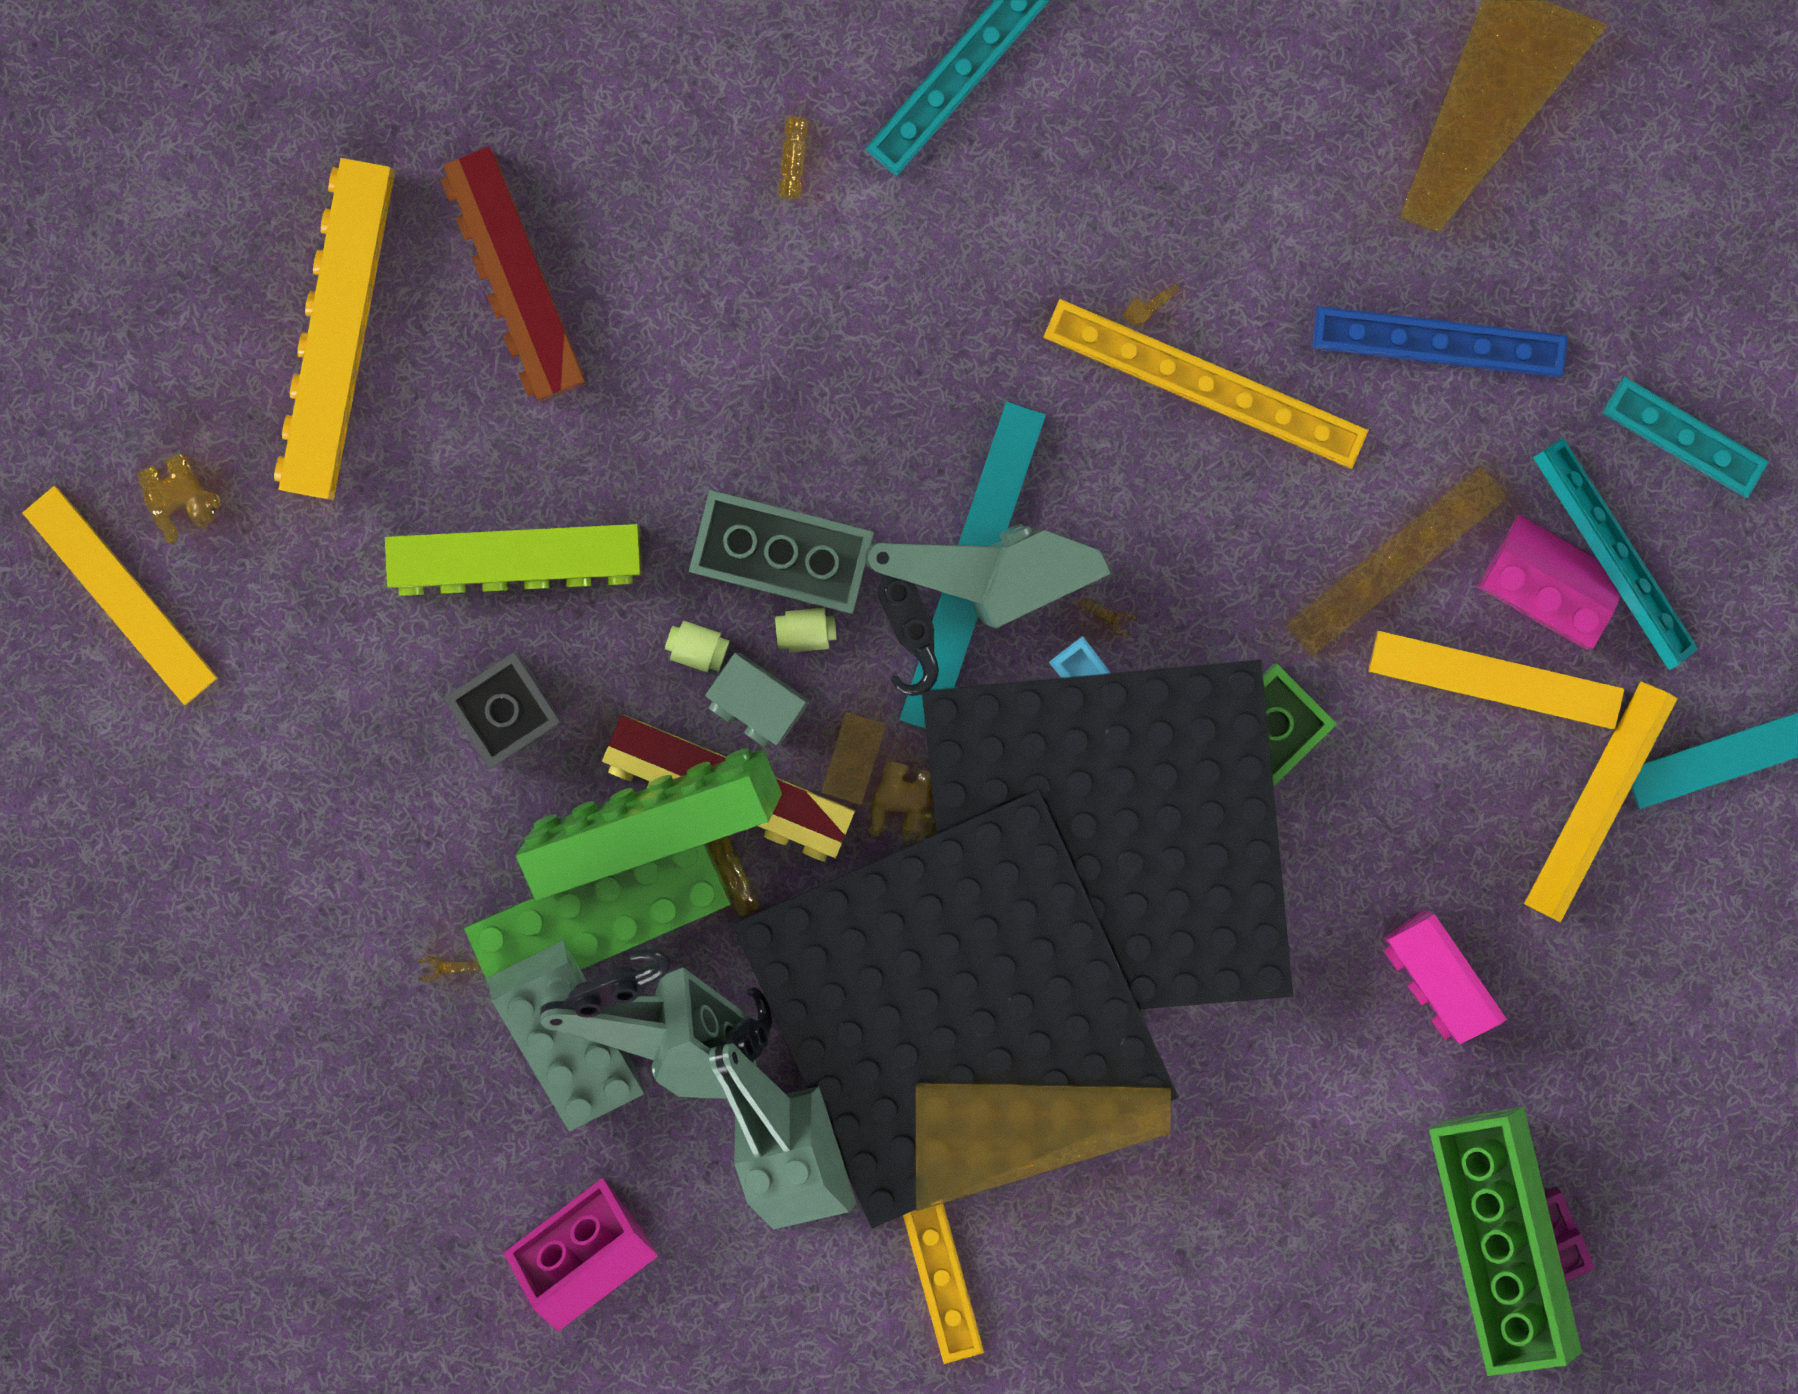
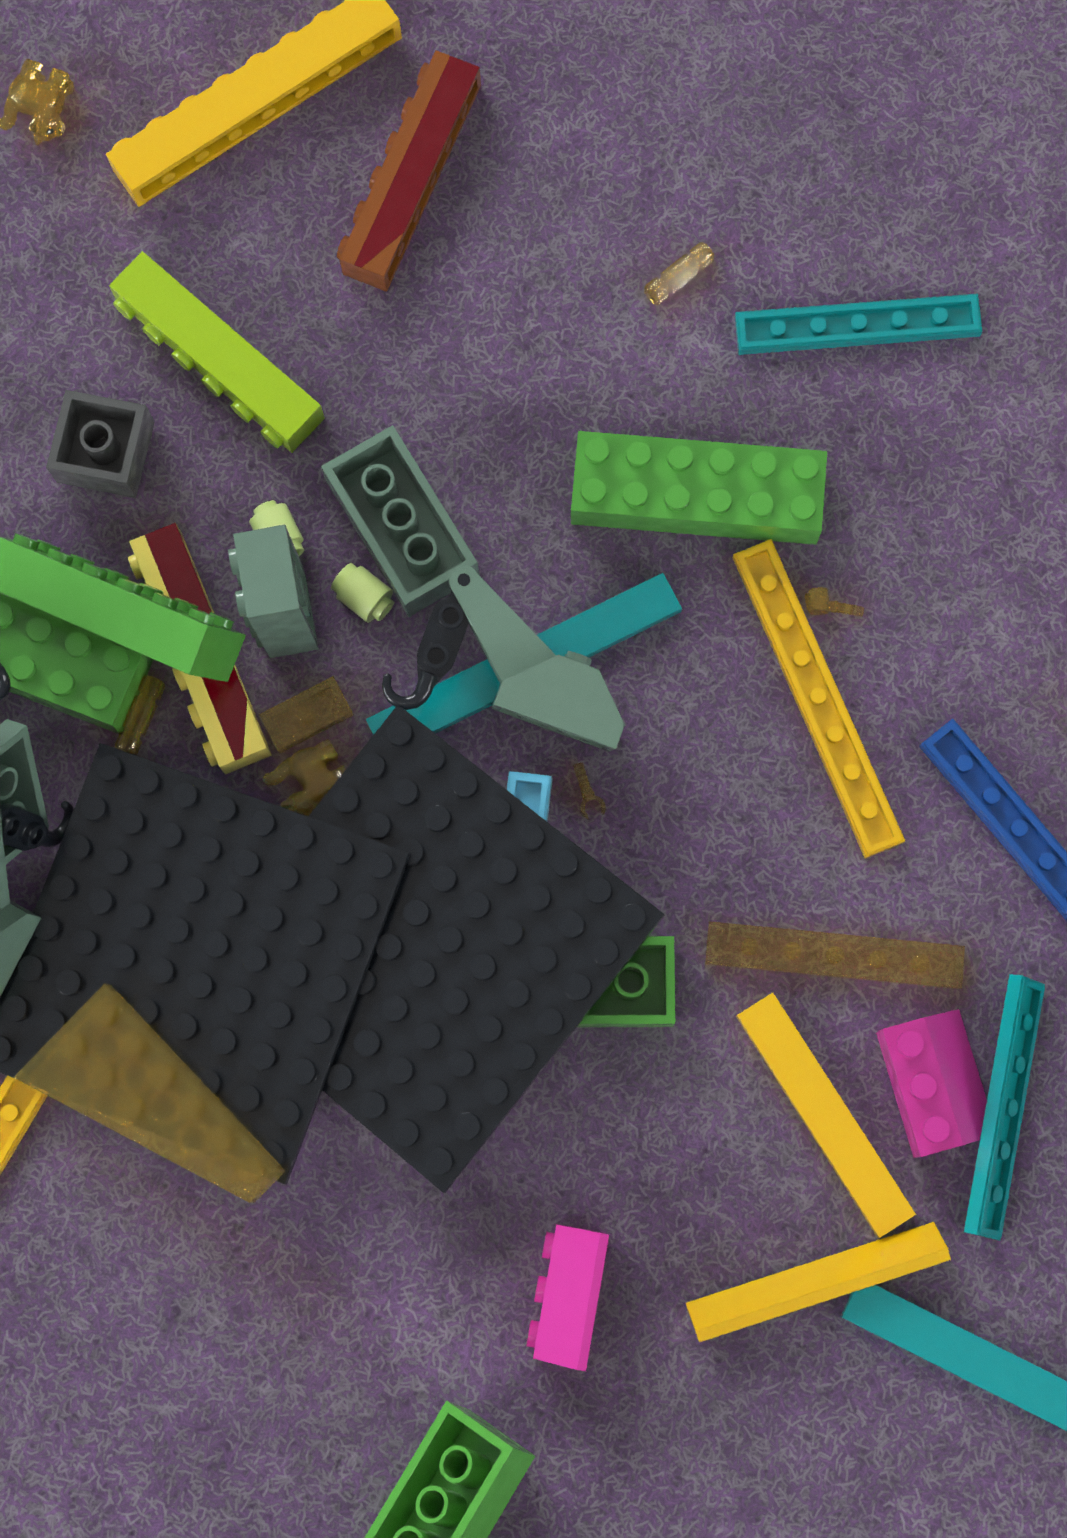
camera: 55 degrees right, 10 degrees down
(971, 313) = (698, 487): none -> bright green brick

